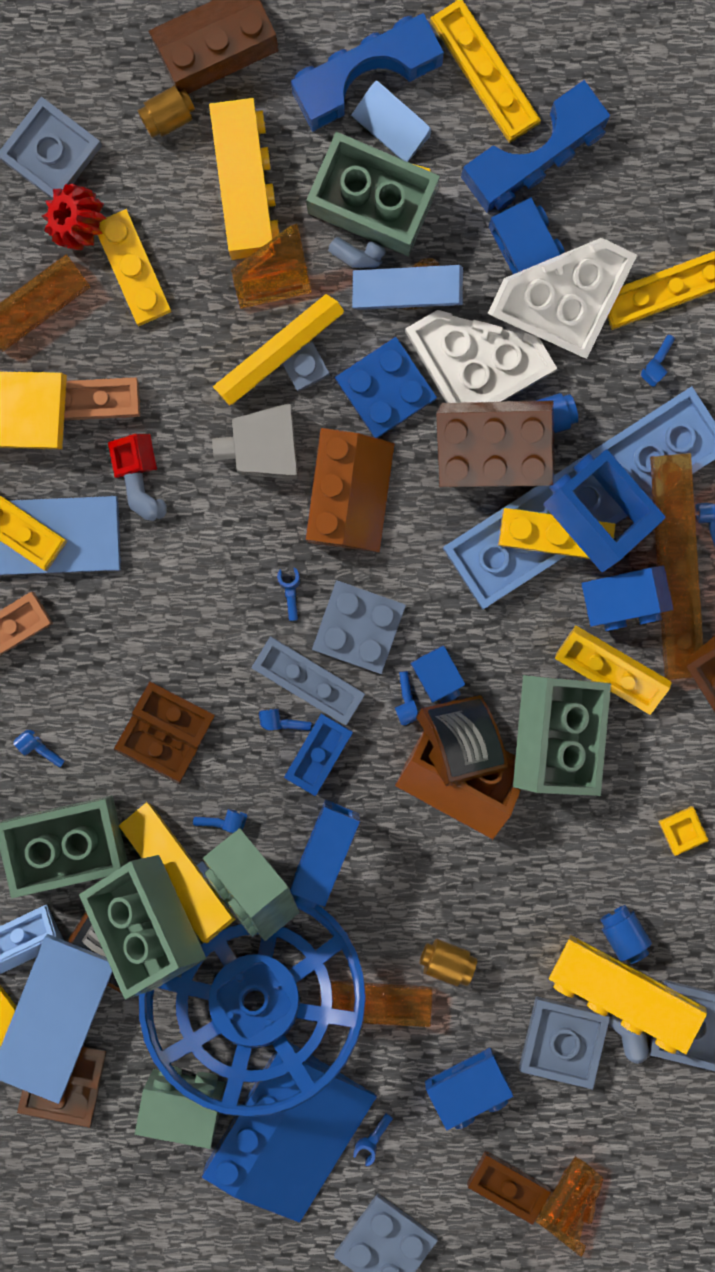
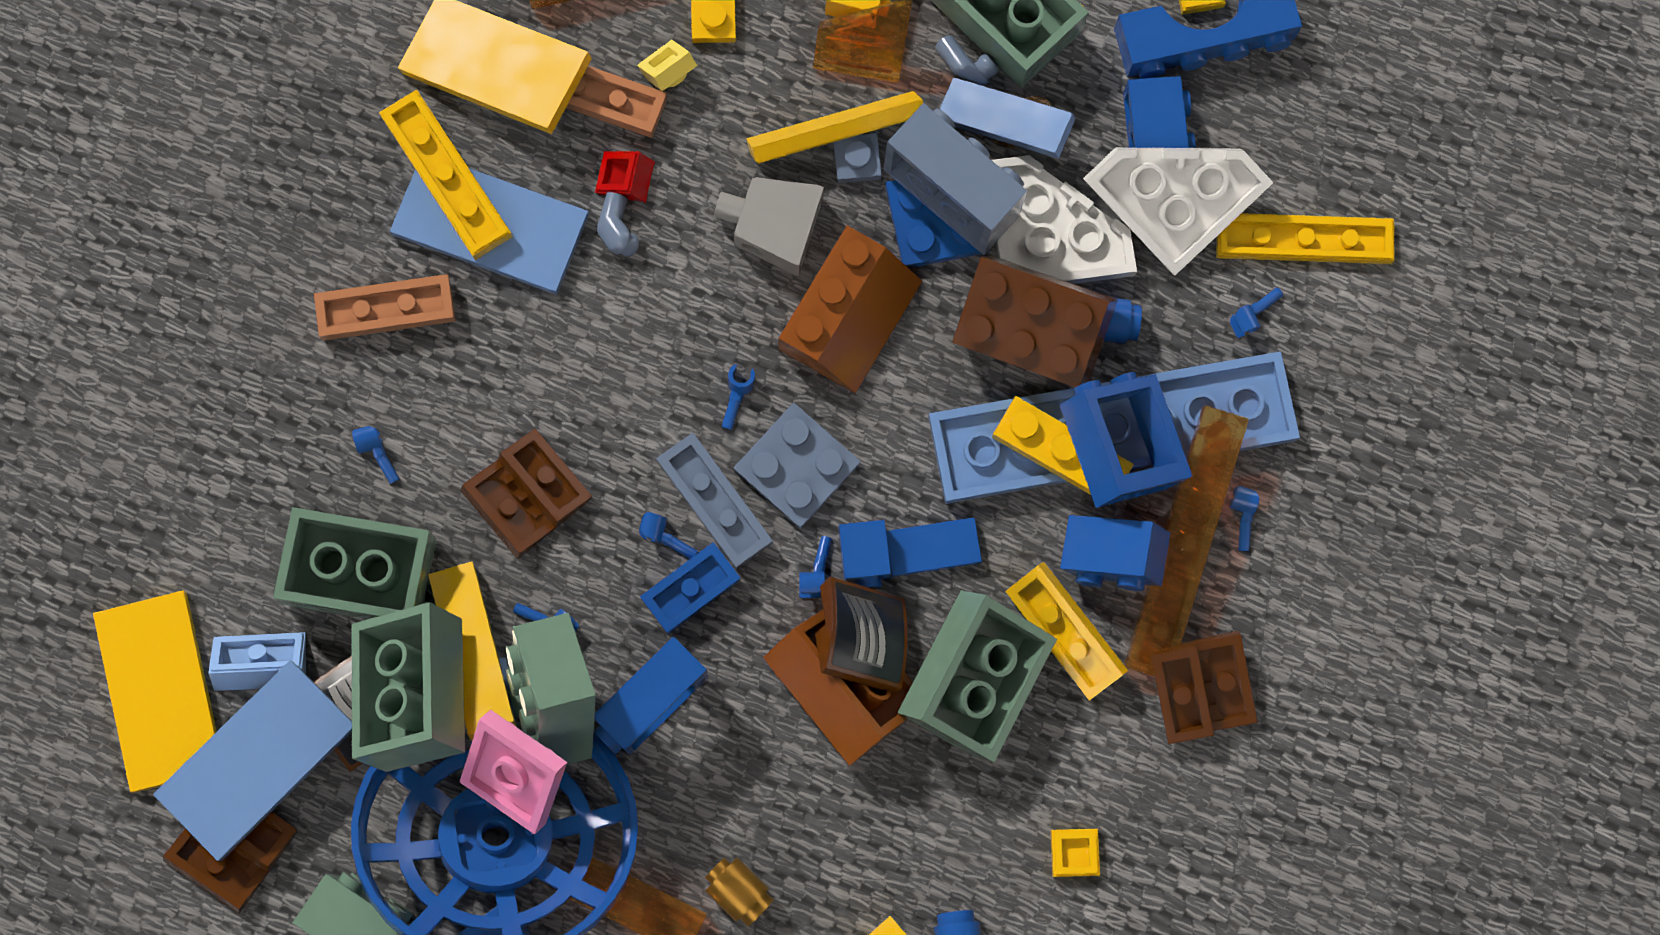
camera: 15 degrees right, 10 degrees down
(127, 354) = (667, 65): none -> light yellow plate
(248, 957) = (512, 771): none -> bright pink plate
(389, 356) = (954, 177): none -> sand blue brick
(486, 646) = (933, 547): none -> blue tile

